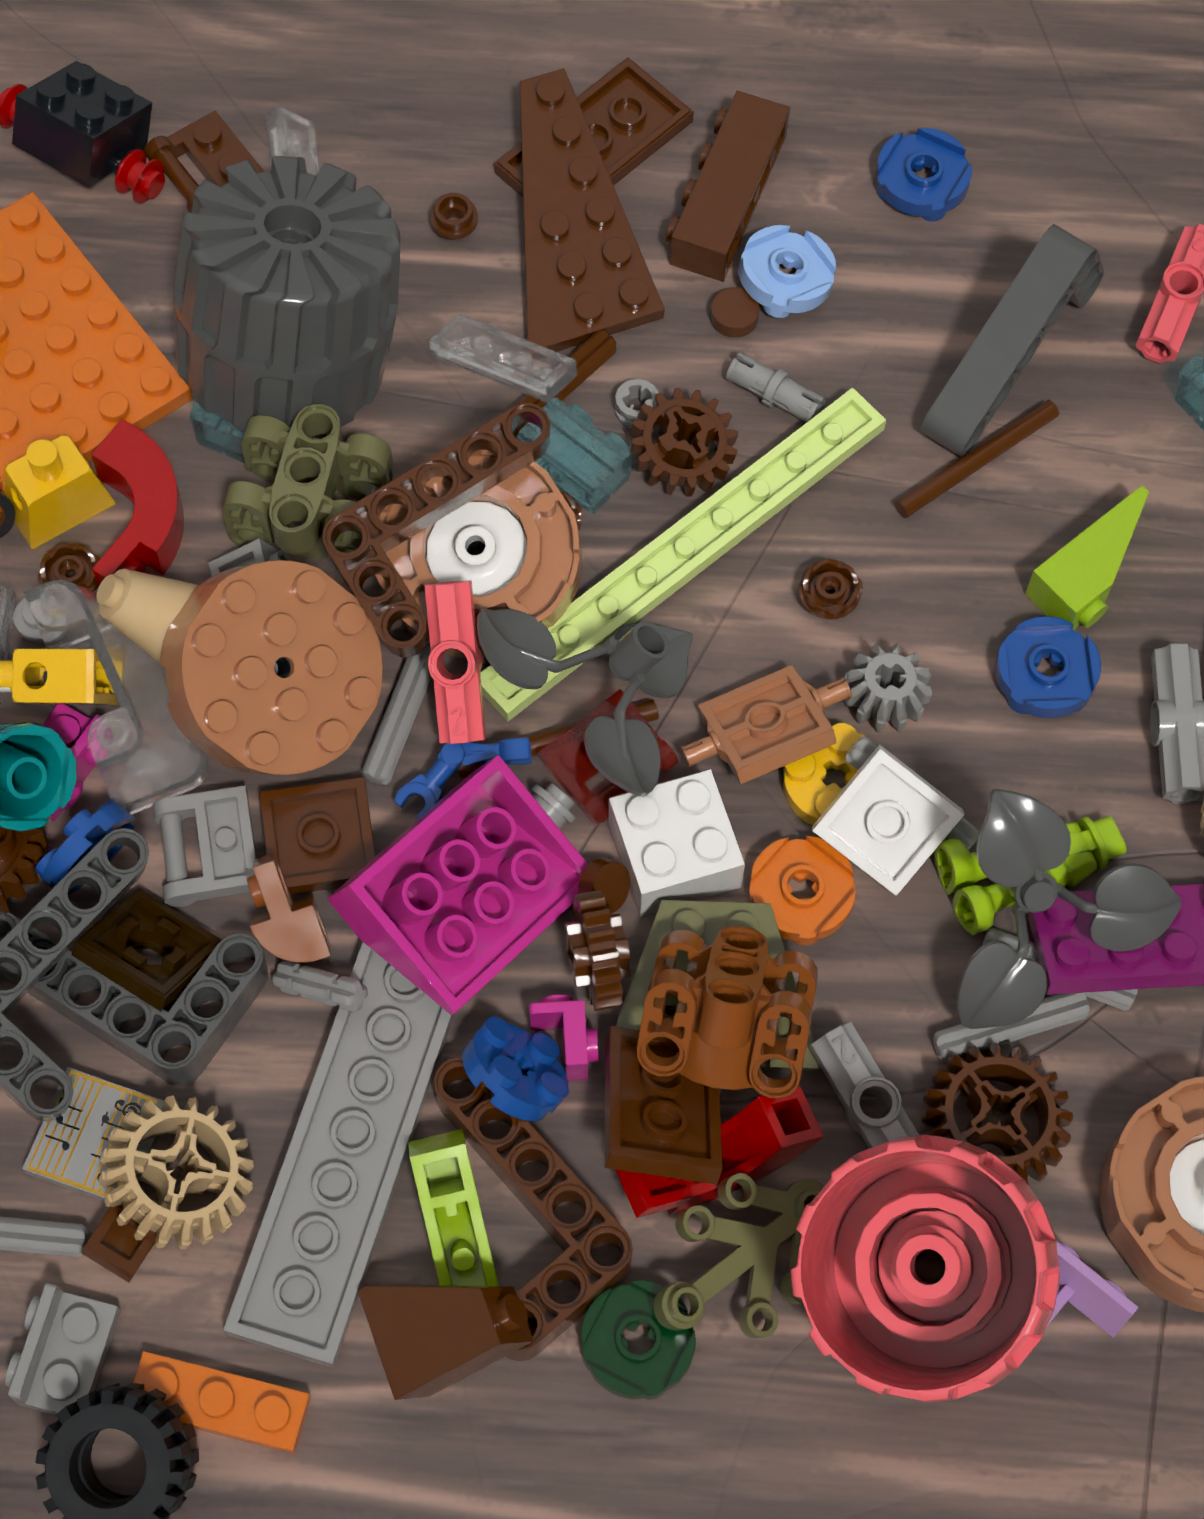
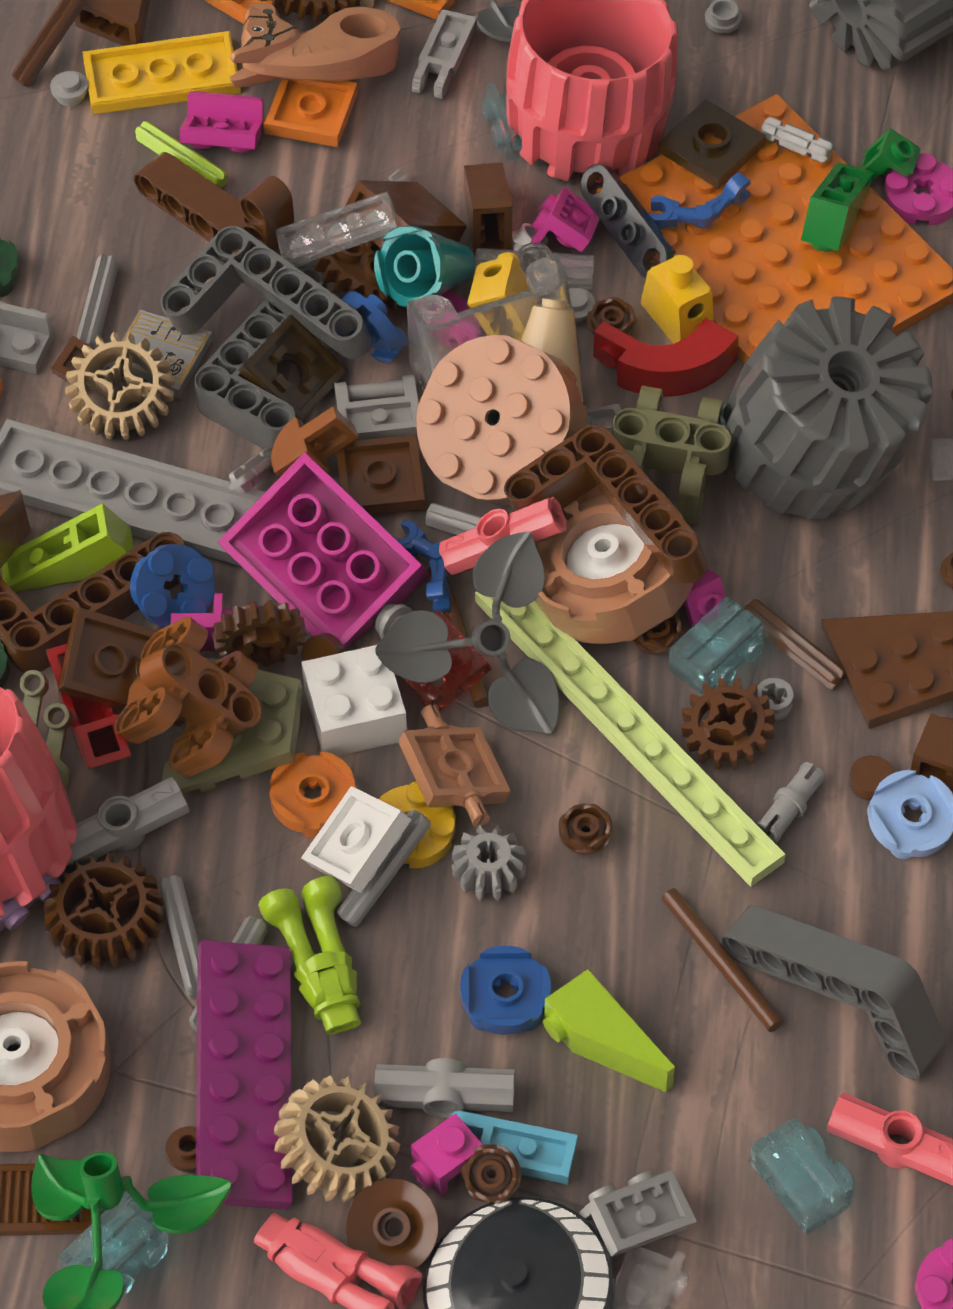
camera: 95 degrees right, 10 degrees down
(503, 358) = (806, 593): clear plate -> none
(1015, 850) = (253, 983): dark grey plant -> none

